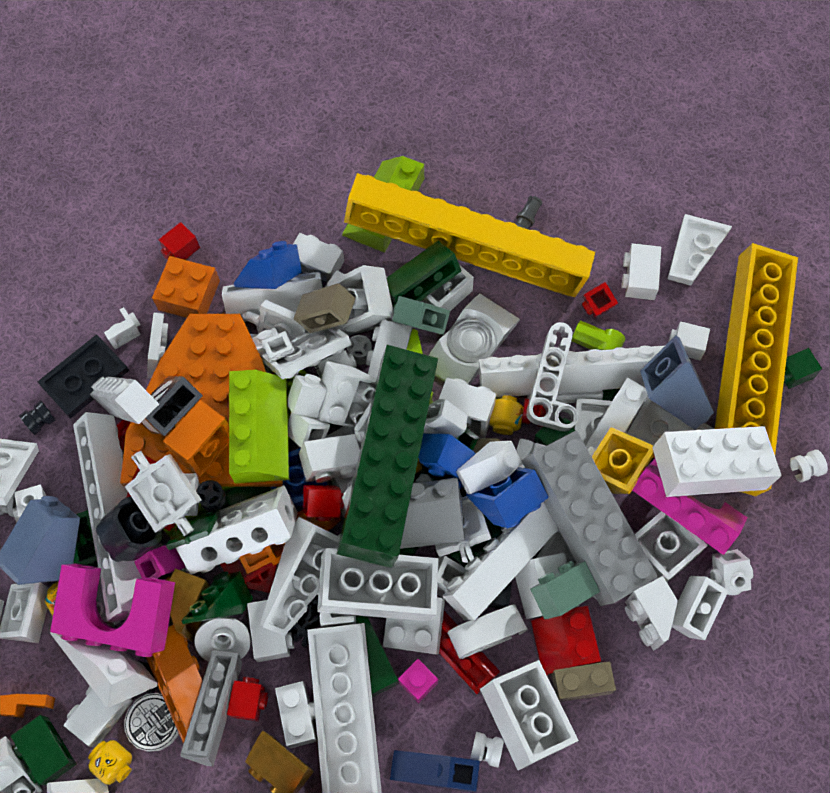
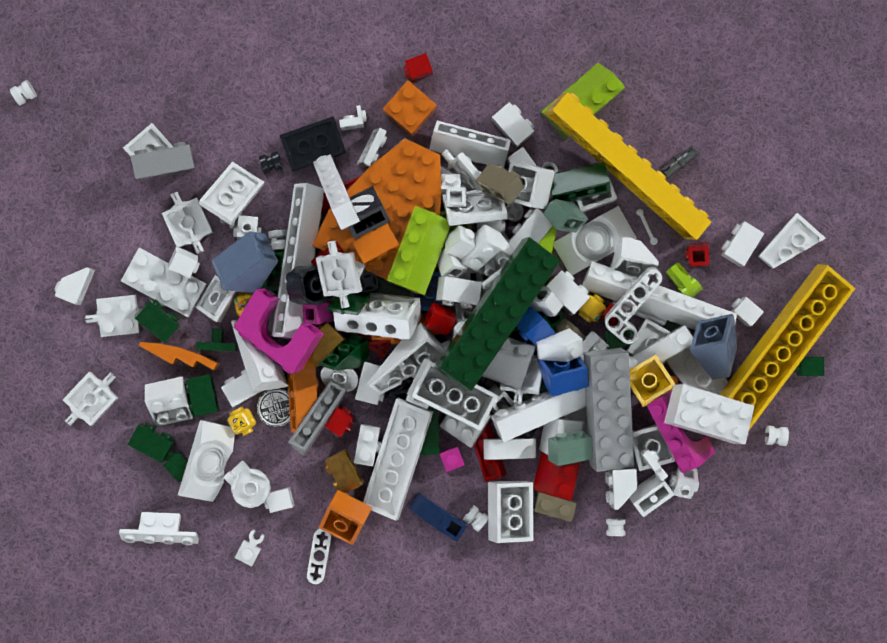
camera: 20 degrees right, 20 degrees up
(41, 670) = (217, 342): none -> dark green tile
(75, 499) = (276, 244): none -> white wheel
(271, 267) = (476, 125): blue slope -> none
(524, 332) = (632, 257): none -> white slope
(540, 314) = (653, 241): none -> white hinge
(676, 556) = (652, 460): none -> white plate
(676, 673) = (615, 527): none -> white wheel

